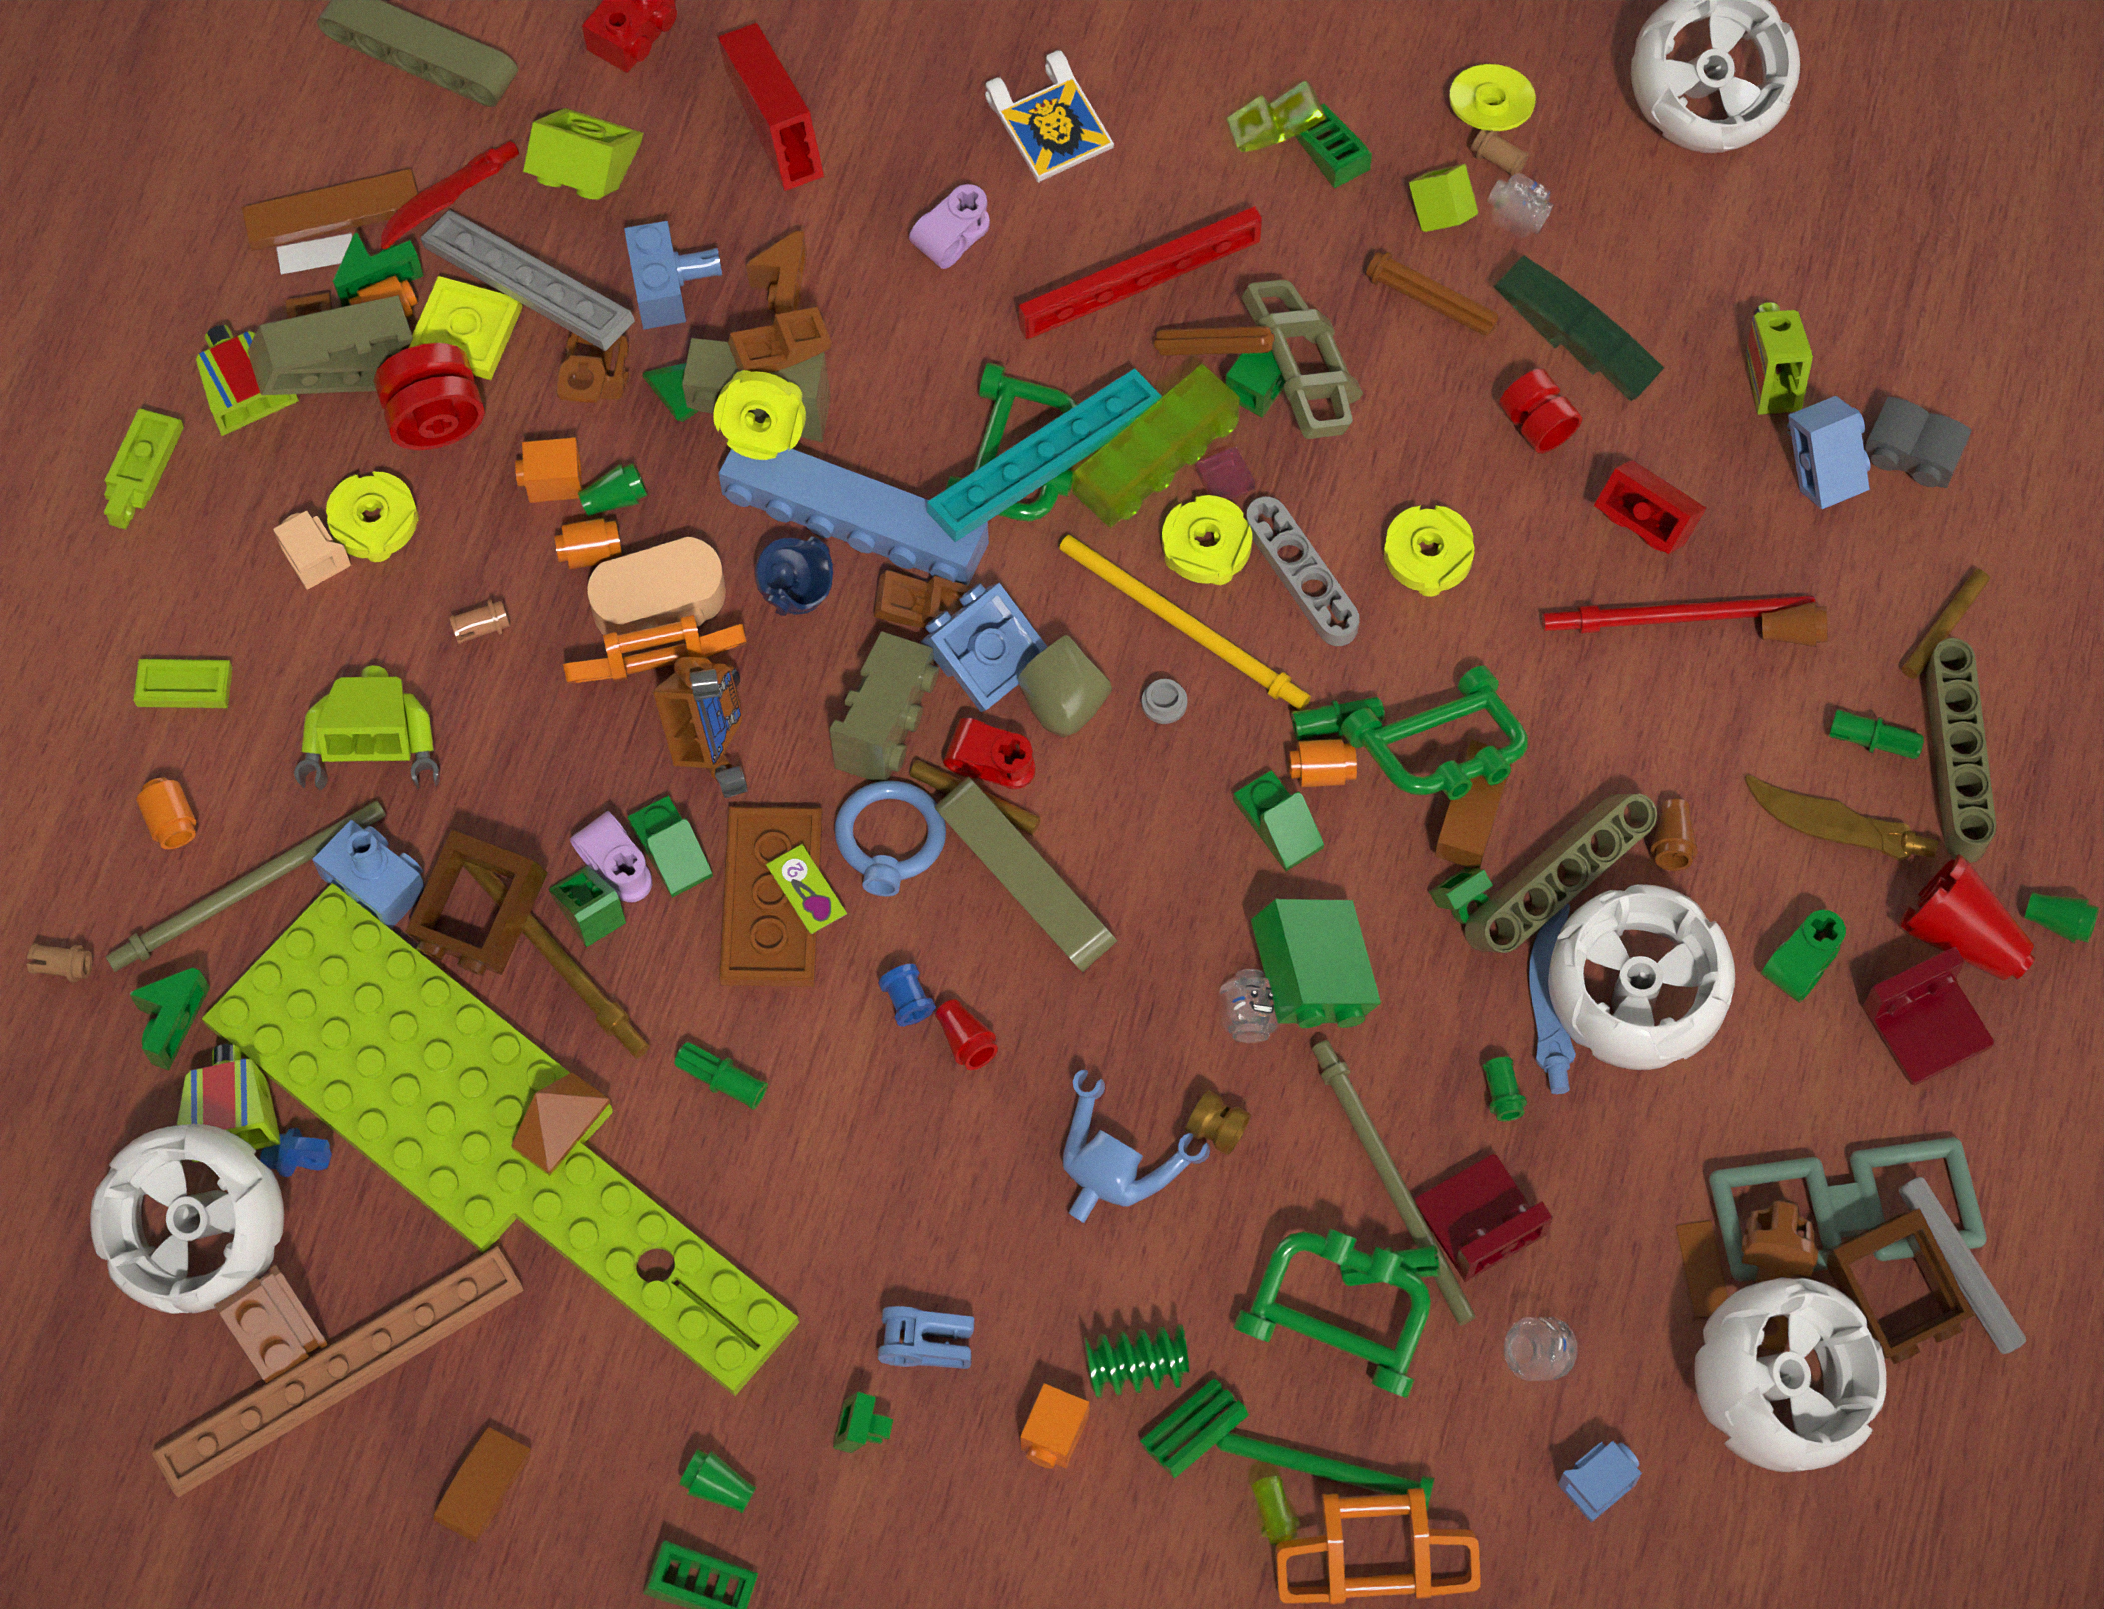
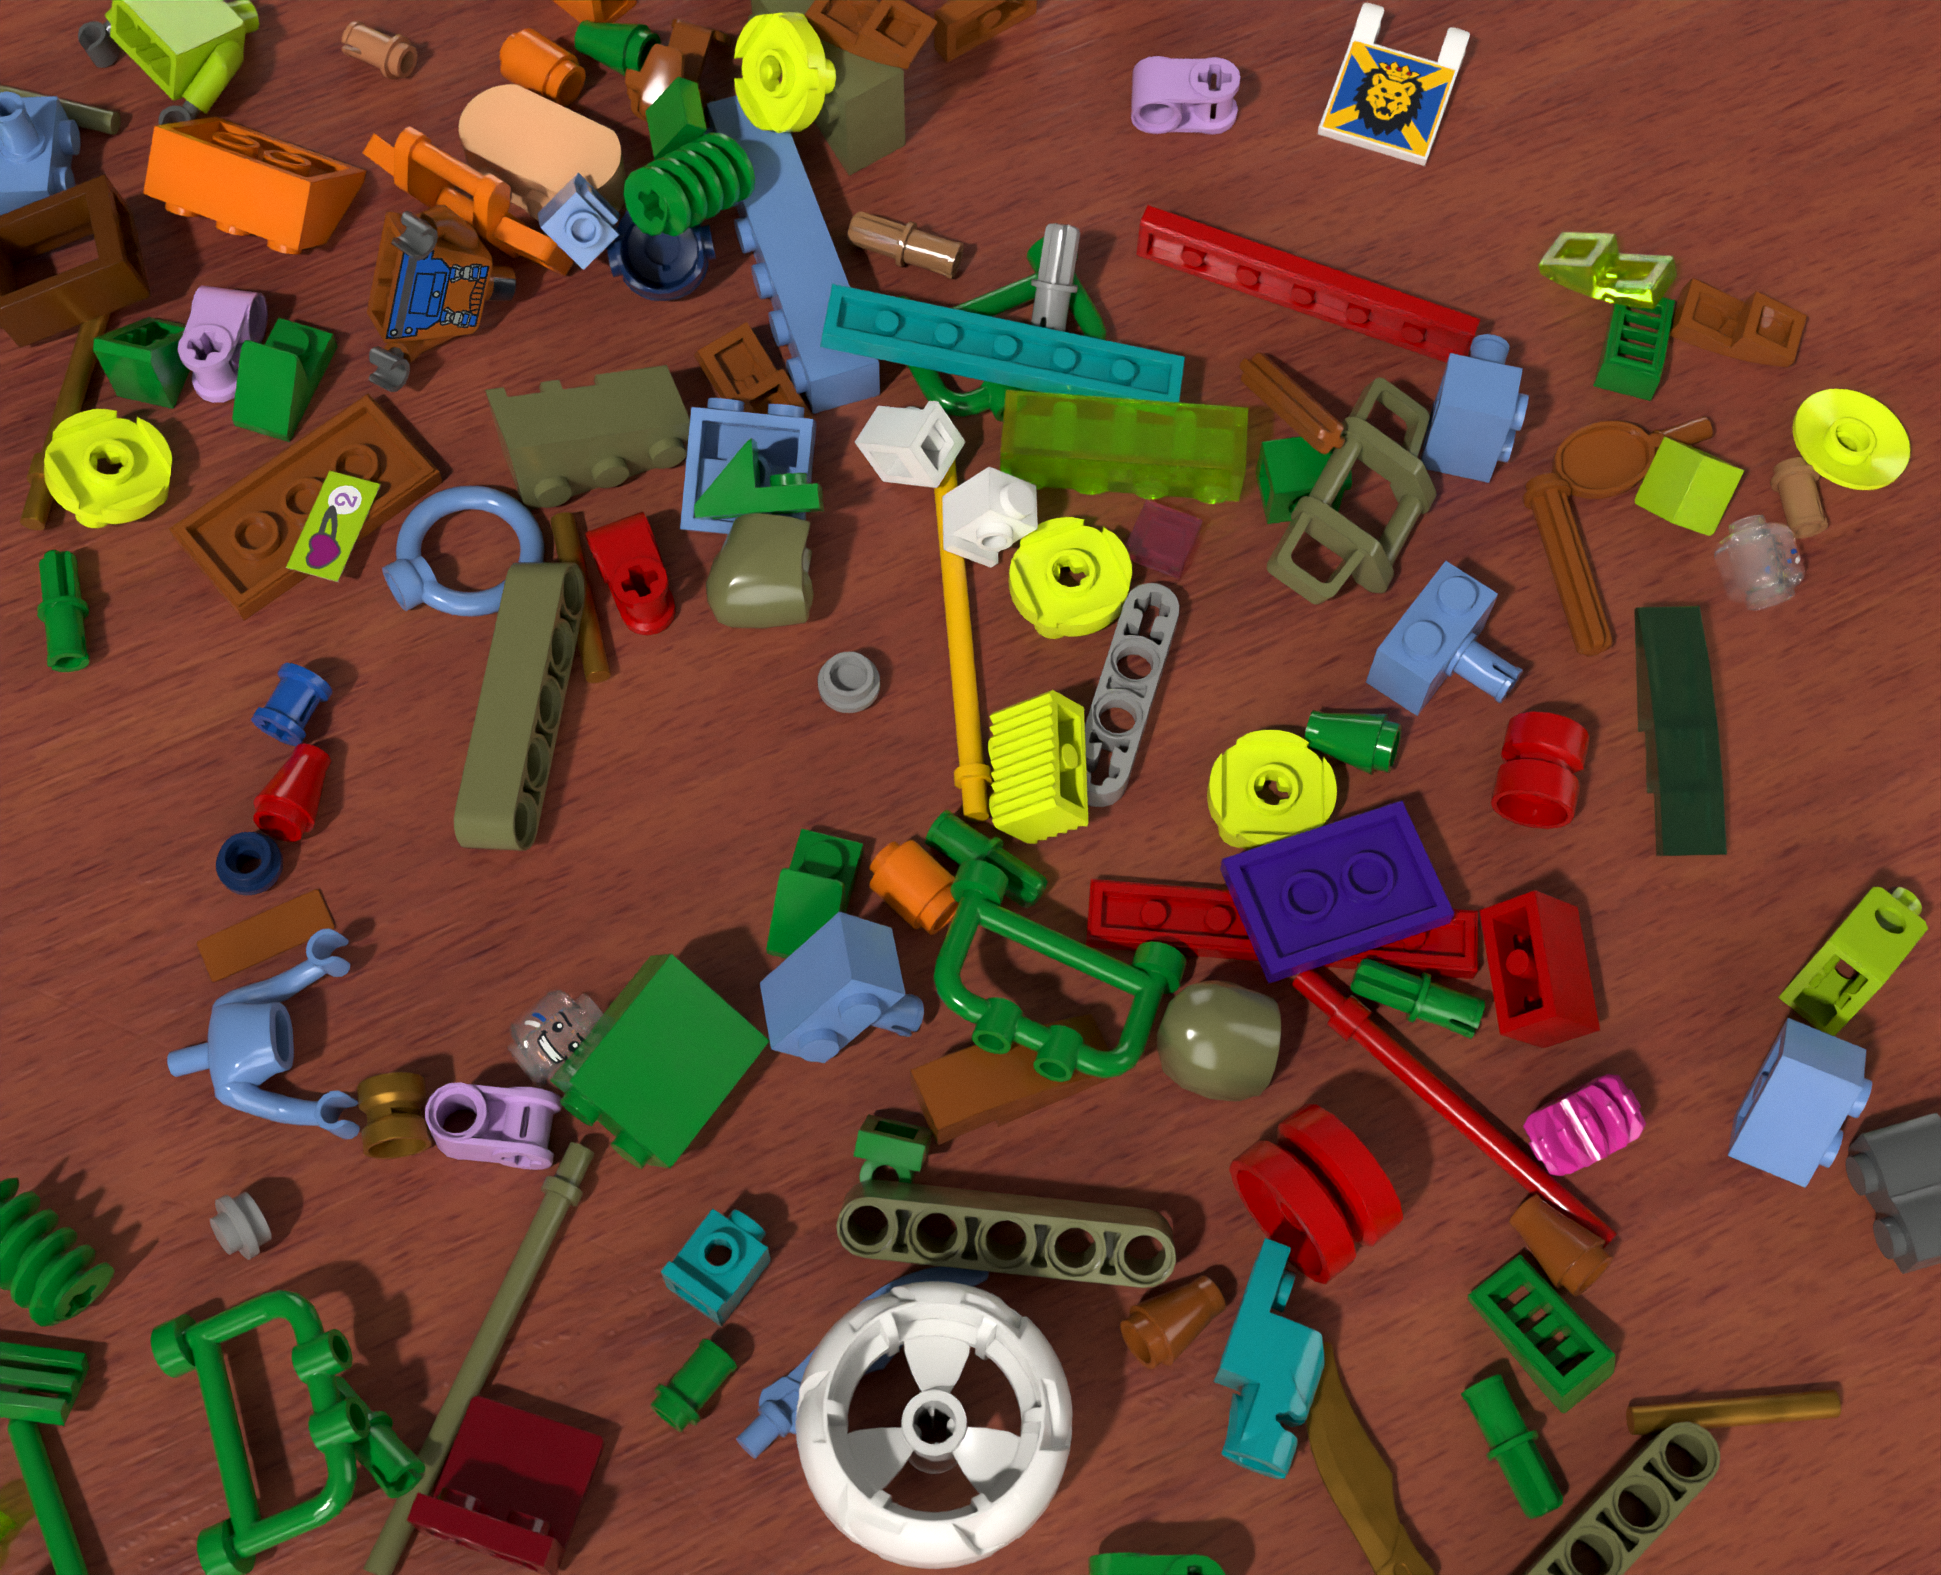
camera: 45 degrees right, 0 degrees up
(515, 760) = (250, 182): none -> orange slope
(650, 1002) = (100, 497): none -> neon yellow plate
(683, 485) = (681, 58): none -> dark orange piece
(734, 507) = (675, 117): none -> green slope
(739, 600) = (579, 221): none -> medium blue window
(788, 522) = (689, 185): none -> green piece
(907, 449) = (905, 244): none -> medium nougat axle
(986, 1078) = (242, 848): none -> dark blue plate
(1009, 656) = (740, 492): none -> green slope
(1019, 391) = (1055, 276): none -> light grey axle
(1035, 1117) = (264, 935): none -> dark orange sticker
(1050, 550) = (910, 444): none -> white brick
(1136, 546) = (988, 515): none -> white brick
(1211, 1246) = (240, 1225): none -> light grey plate
(1274, 1070) = (499, 1124): none -> lavender piece
(1309, 254) = (1475, 412): none -> medium blue brick
(1313, 646) = (1039, 768): none -> neon yellow brick
(1357, 844) = (836, 989): none -> medium blue brick
(1371, 88) = (1748, 330): none -> dark orange slope
(1391, 213) = (1616, 455): none -> dark orange piece
(1422, 393) = (1439, 640): none -> medium blue brick
(1438, 482) = (1355, 738): none -> green cone
(1447, 1040) = (713, 1288): none -> teal brick
(1507, 610) = (1209, 925): none -> red tile
(1519, 563) = (1336, 891): none -> dark purple plate
(1550, 687) = (1220, 1040): none -> olive piece
(1608, 576) = (1418, 997): none -> green axle
(1676, 708) = (1316, 1192): none -> red wheel
(1736, 808) = (1272, 1366): none -> teal plate
(1750, 557) = (1584, 1125): none -> dark pink gear
(1830, 687) = (1597, 1356): none -> green slope

